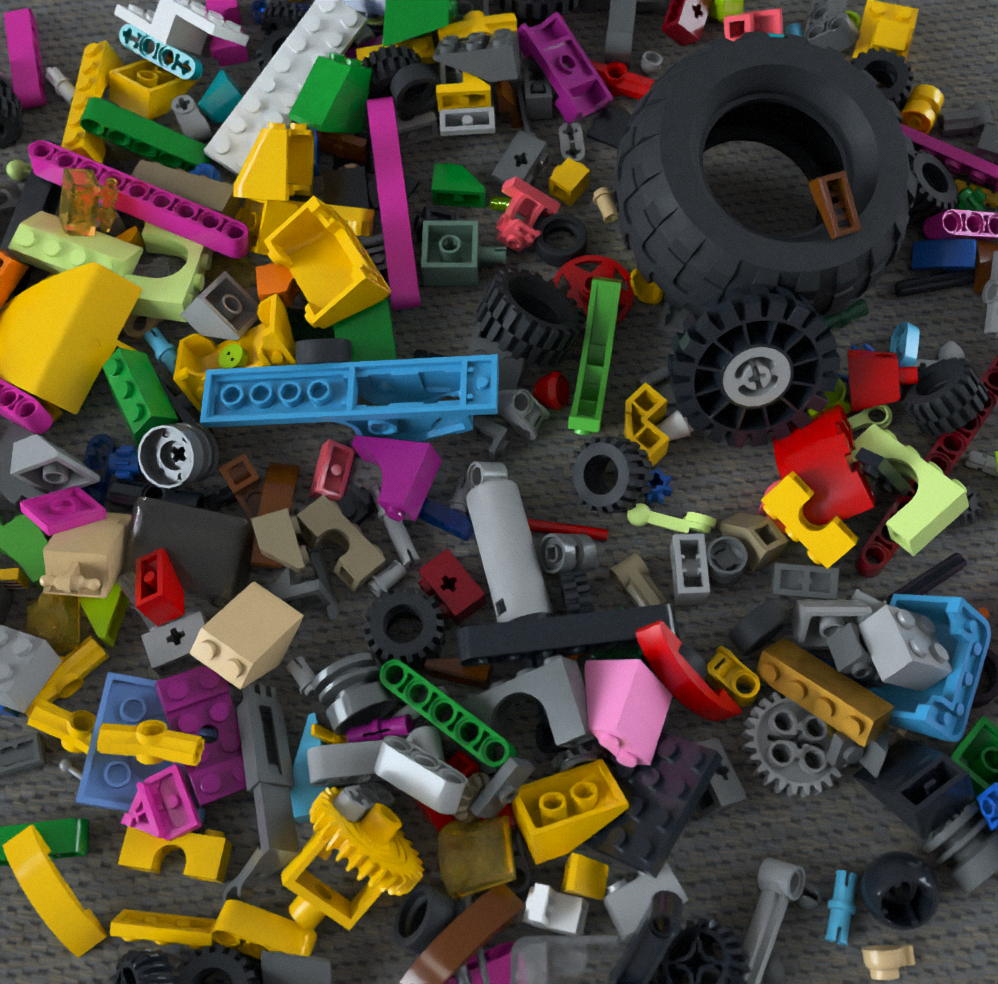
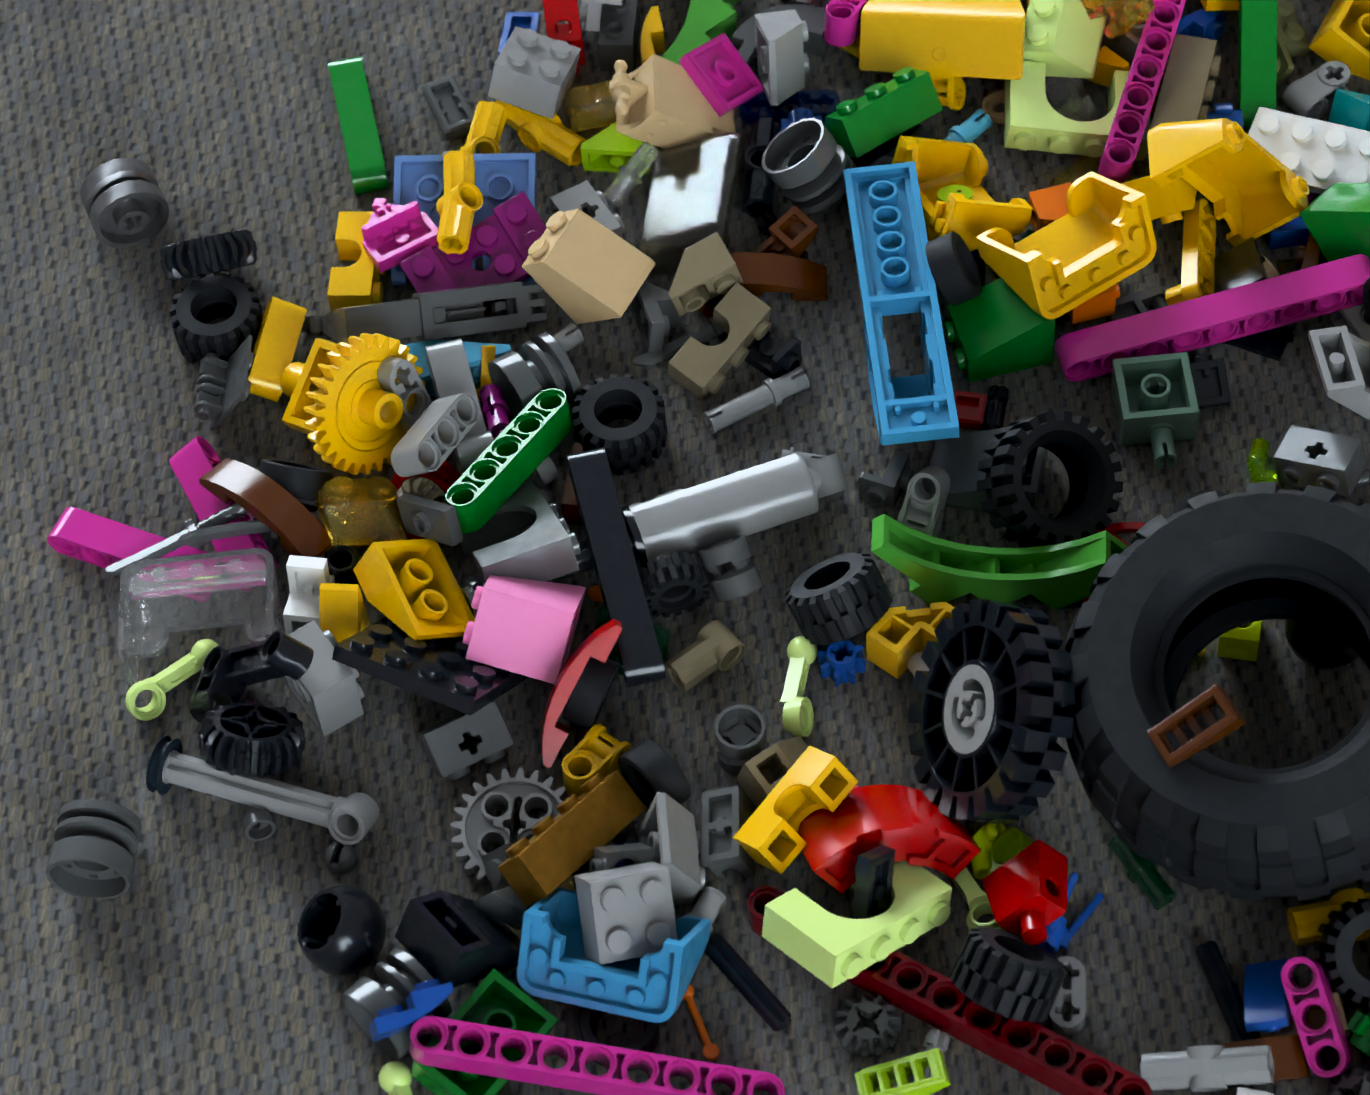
camera: 85 degrees right, 10 degrees down
(51, 894) = (304, 162): yellow slope -> none
(158, 588) = (637, 178): red slope -> none
(163, 928) = (281, 262): yellow plate -> none
(222, 310) = (1016, 167): light grey slope -> none
(332, 471) = (825, 330): coral slope -> none
(387, 578) = (685, 401): light grey pin -> none
(406, 472) = (808, 385): magenta arch -> none
(445, 571) = (682, 461): dark red brick -> none
(446, 519) = (778, 428): clear blue beam -> none
(456, 187) = (1273, 393): green slope -> none
(528, 203) = (1203, 464): coral tile -> none
(552, 390) = (966, 530): red cone -> none
(555, 527) = (775, 576): red bar -> none
(689, 569) = (712, 693): light grey brick -> none
(841, 907) = (307, 886): medium azure pin -> none
(887, 959) = (272, 932): tan piece -> none
(905, 343) = (1100, 947): medium azure beam -> none
(950, 350) = (1103, 1013): light grey hinge -> none

